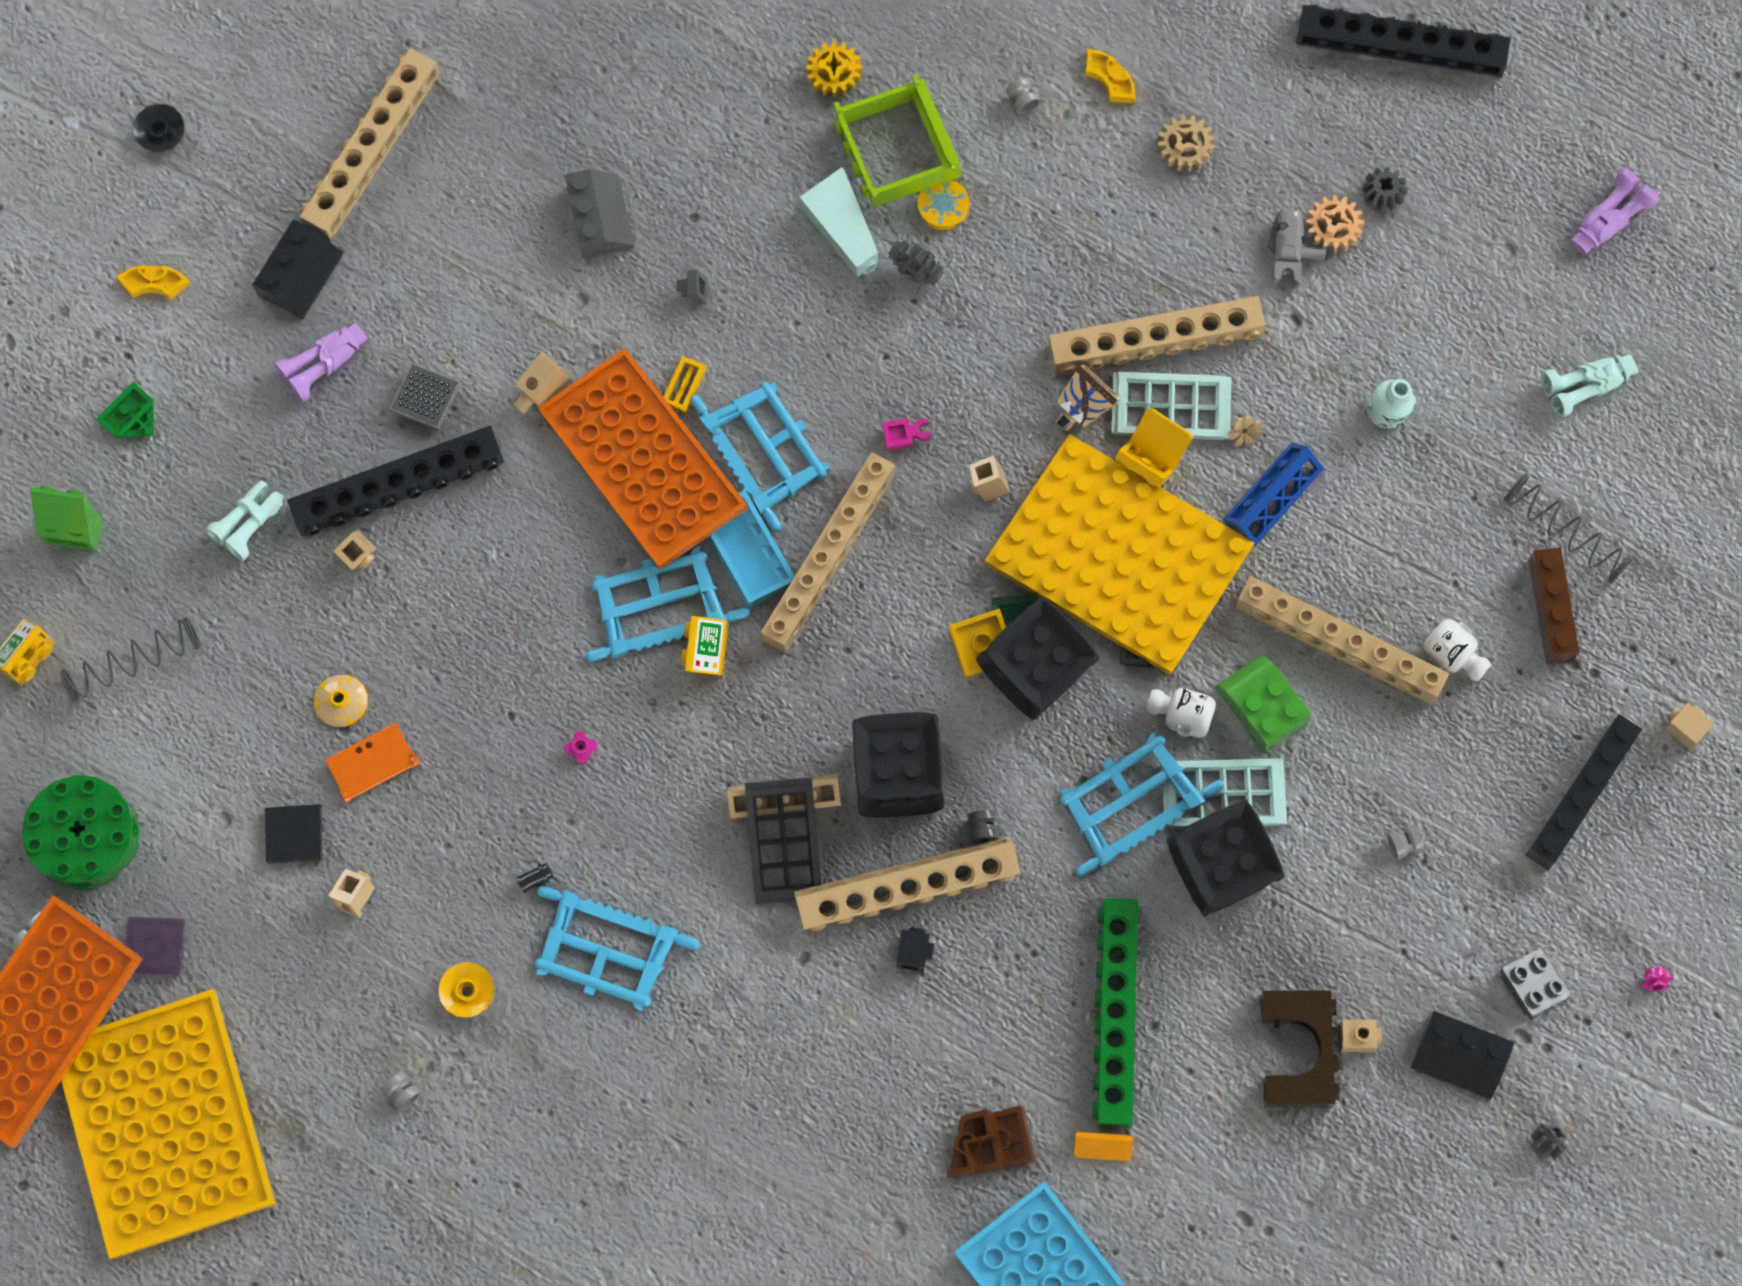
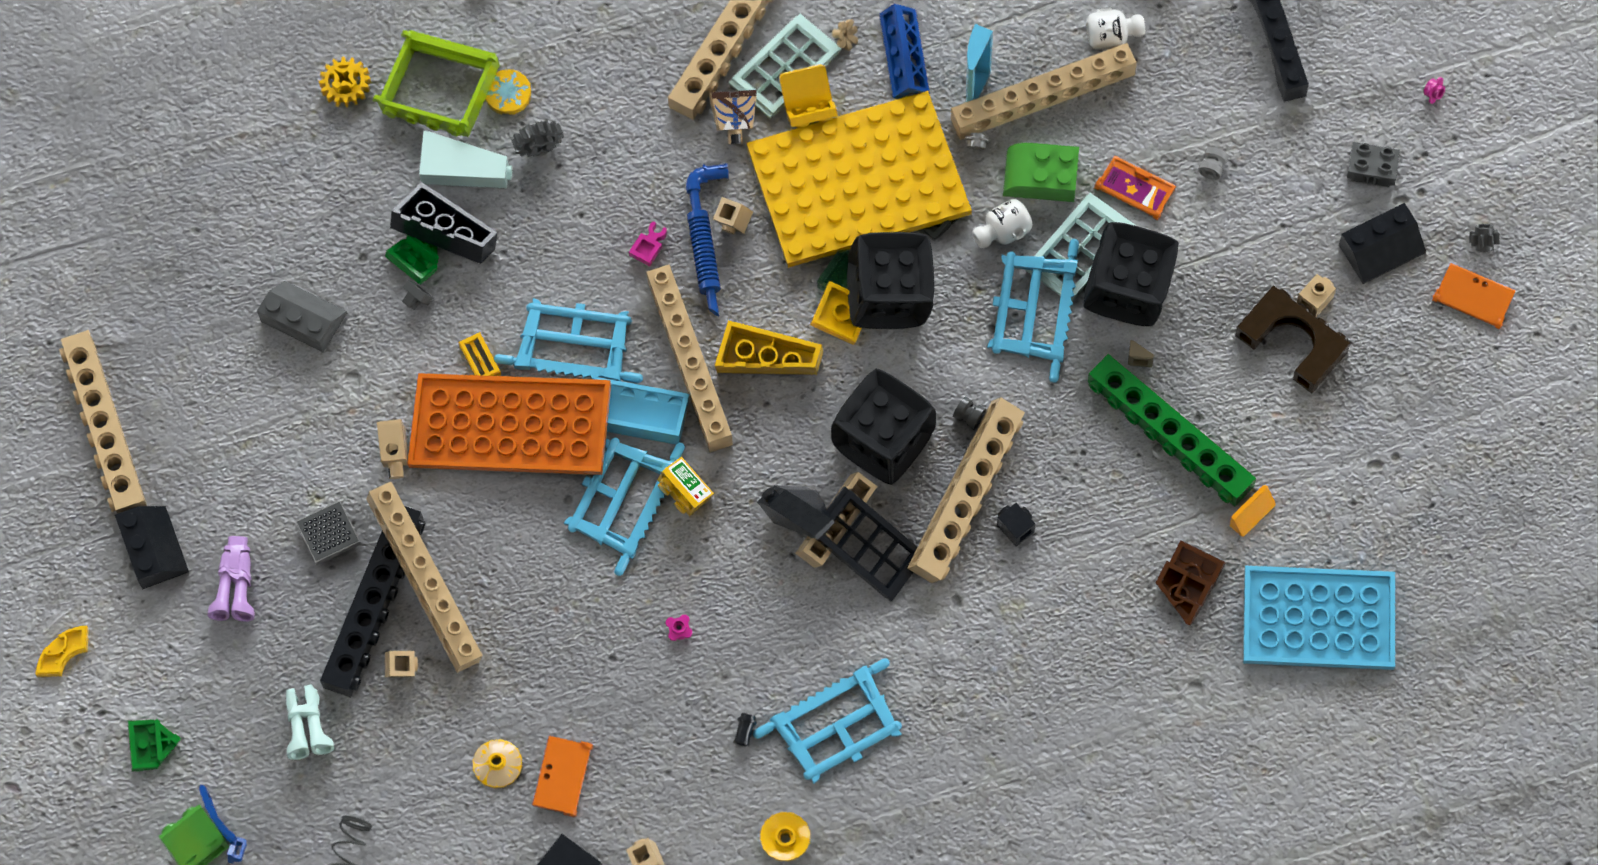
camera: 50 degrees left, 5 degrees down
(97, 549) = (235, 842): none -> blue sword
(442, 504) = (424, 577): none -> tan brick
(729, 257) = (414, 258): none -> green slope
(762, 756) = (797, 509): none -> black wedge
(771, 250) = (443, 224): none -> black wedge
(885, 607) = (766, 352): none -> yellow wedge
(952, 466) = (701, 233): none -> blue piece
(1162, 927) = (1139, 355): none -> dark tan slope
(1243, 623) = (977, 141): none -> light grey plate
(1304, 562) = (978, 61): none -> medium azure slope
(1320, 795) = (1123, 183): none -> door
(1484, 1178) = (1474, 296): none -> orange door

